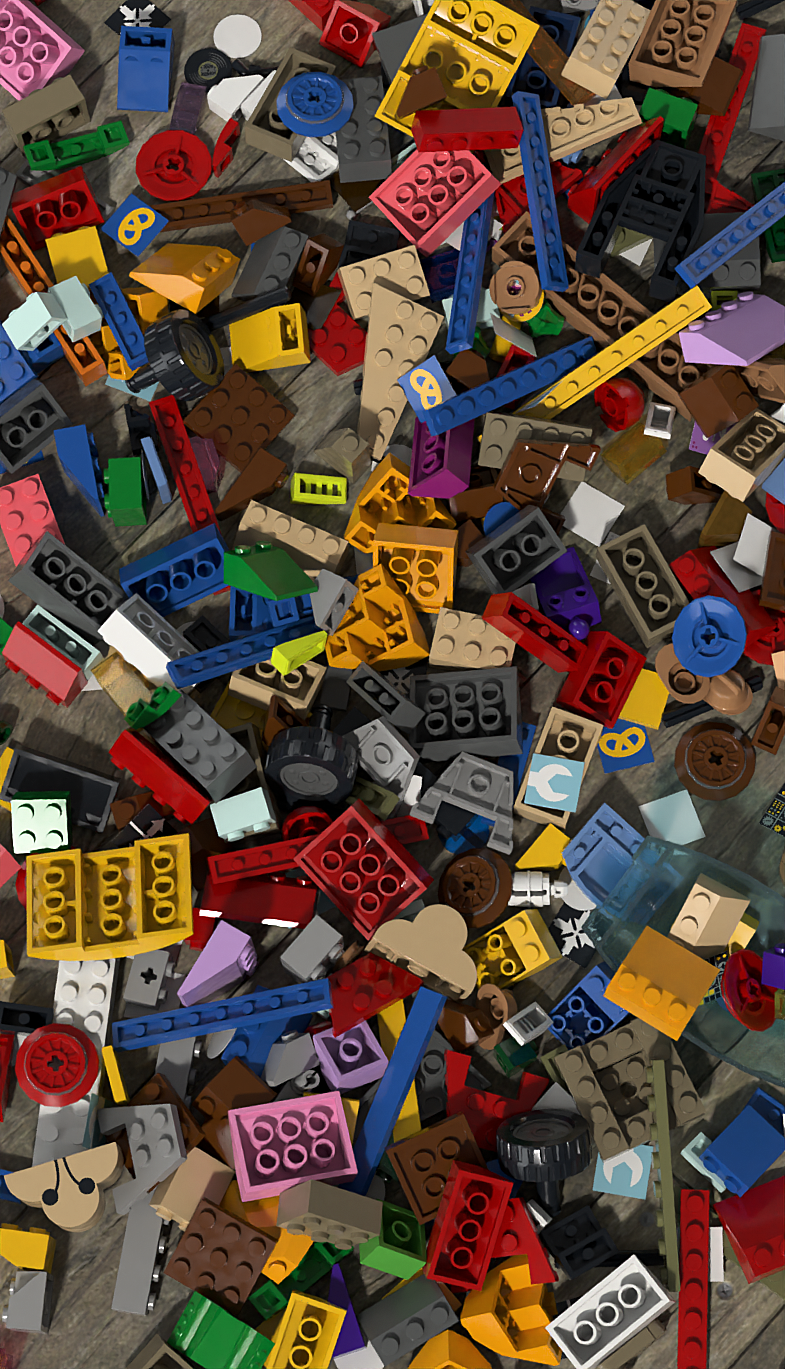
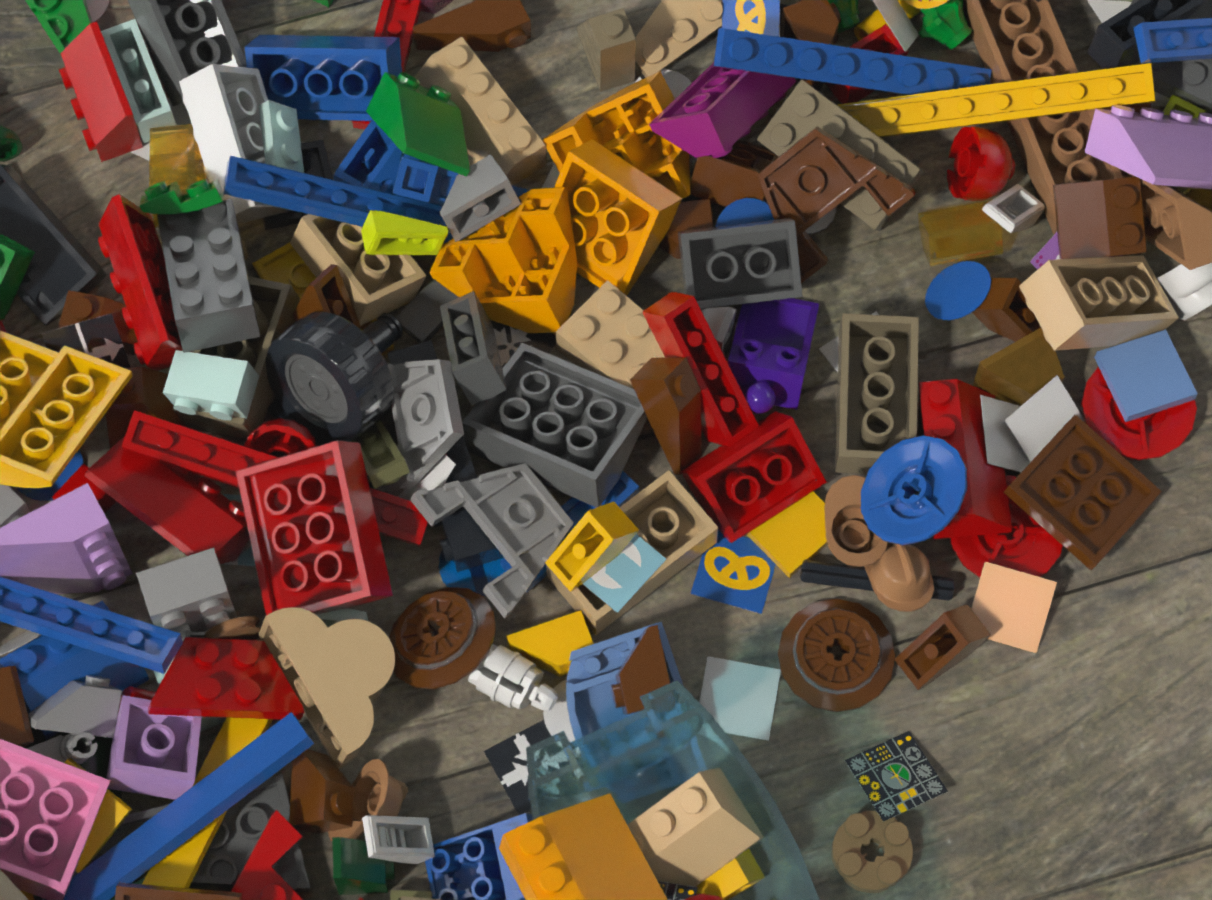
camera: 25 degrees right, 5 degrees down
(180, 631) = (281, 136): none -> light aqua plate
(317, 498) = (538, 79): neon yellow slope -> none
(513, 950) = (439, 740): yellow slope -> none
(531, 665) = (672, 407): none -> reddish brown slope
(537, 780) = (591, 545): none -> yellow slope
(591, 513) = (865, 277): white sticker -> none
(614, 841) = (641, 672): none -> reddish brown slope
(654, 491) = (958, 290): none -> blue sticker

